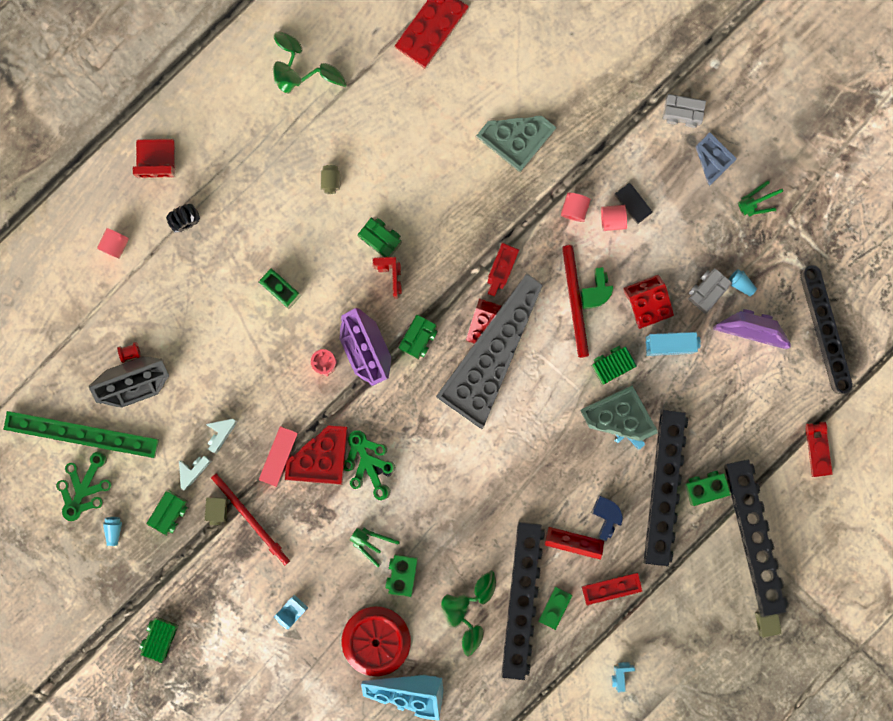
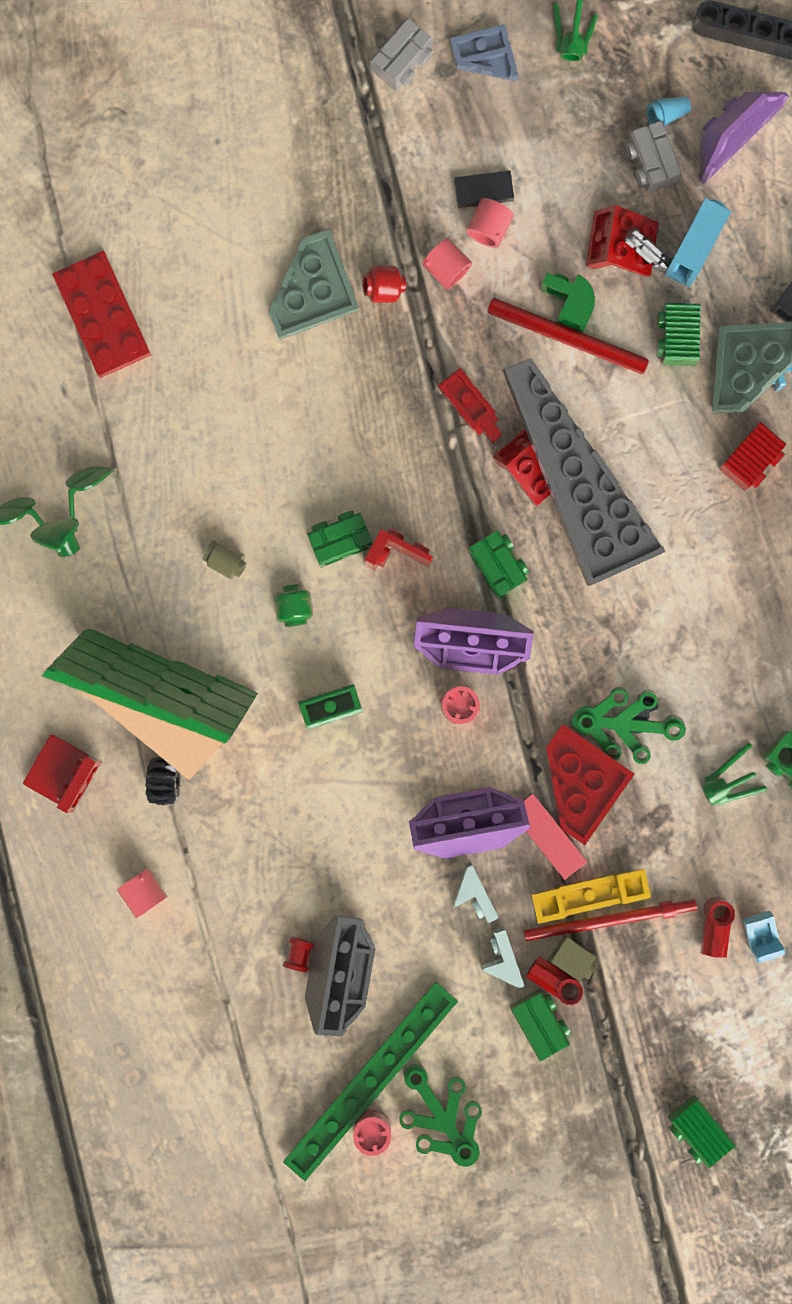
camera: 60 degrees left, 0 degrees up
(52, 452) = (372, 1133): none -> coral piece
(112, 530) = (521, 1111): medium azure cone -> none
(197, 504) = (553, 979): none -> red piece
(226, 188) = (160, 701): none -> green piece
(258, 404) = (468, 823): none -> medium lavender wedge
(258, 499) = (590, 895): none -> yellow slope
(279, 583) = (716, 930): none -> red piece
(326, 234) = (293, 606): none -> green head
(542, 177) = (383, 284): none -> red head
(566, 448) = (753, 456): none -> red brick
(650, 317) = (647, 250): none -> axle

